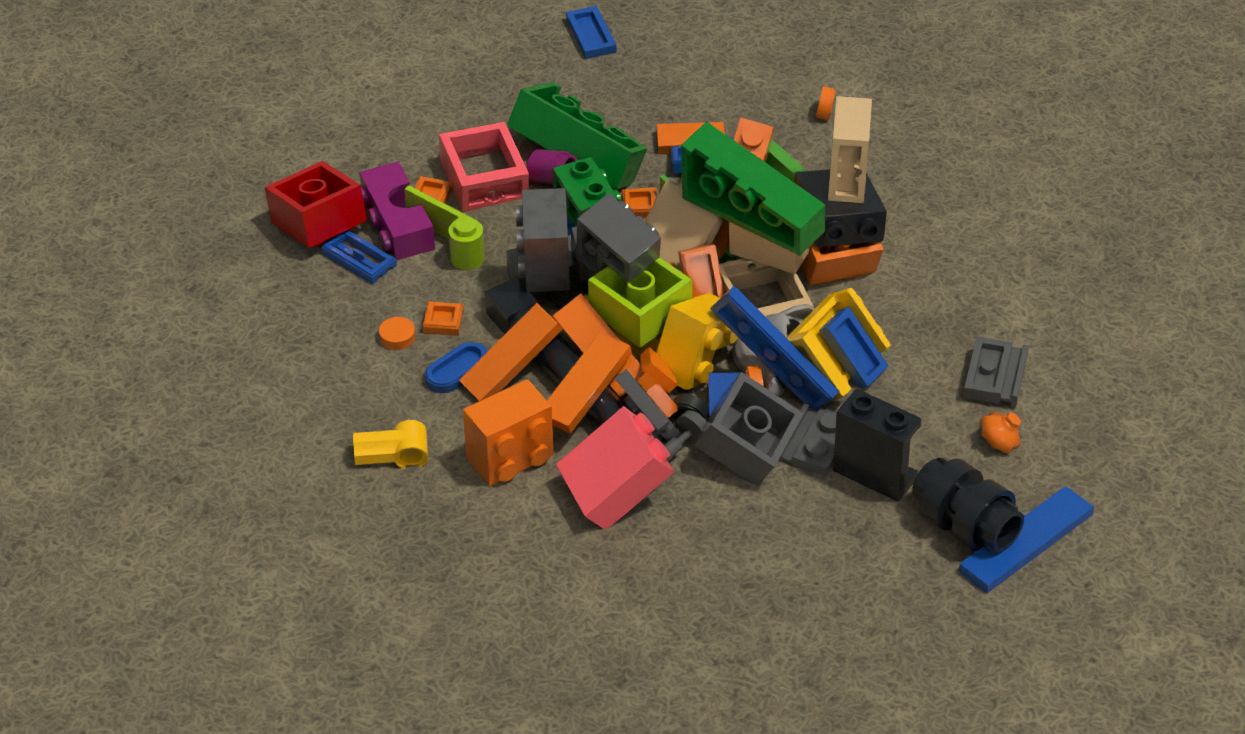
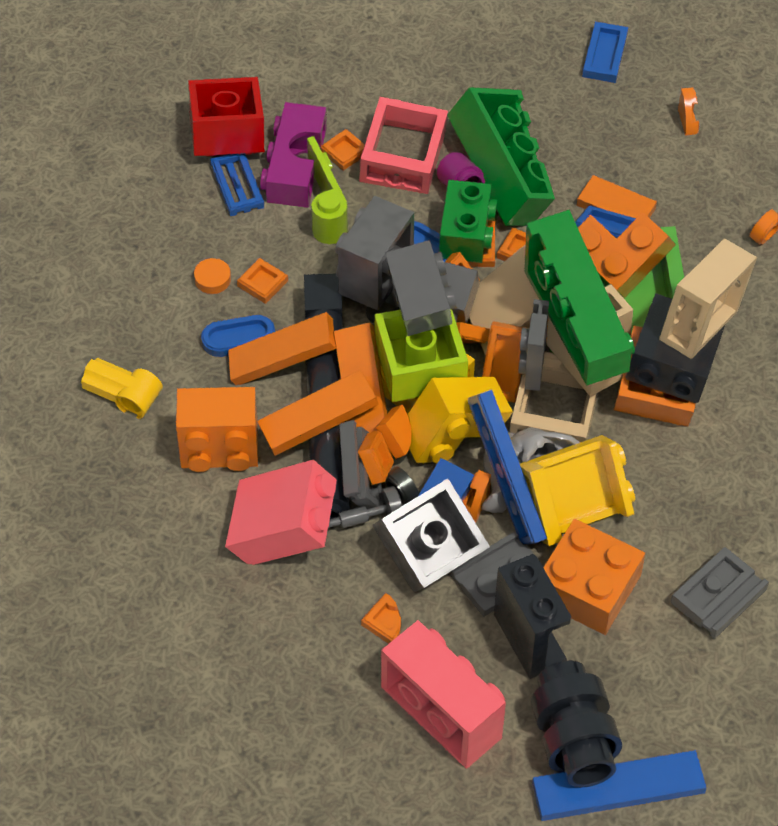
camera: 30 degrees right, 10 degrees up
(694, 47) = (685, 109): none -> orange tile
(732, 249) = (533, 345): none -> dark grey plate
(752, 514) = (383, 619): none -> orange tile
(850, 533) = (443, 693): none -> coral brick
(853, 348) = (594, 495): blue tile -> none
(901, 385) = (593, 574): none -> orange brick
(1001, 431) = (674, 659): orange piece -> none

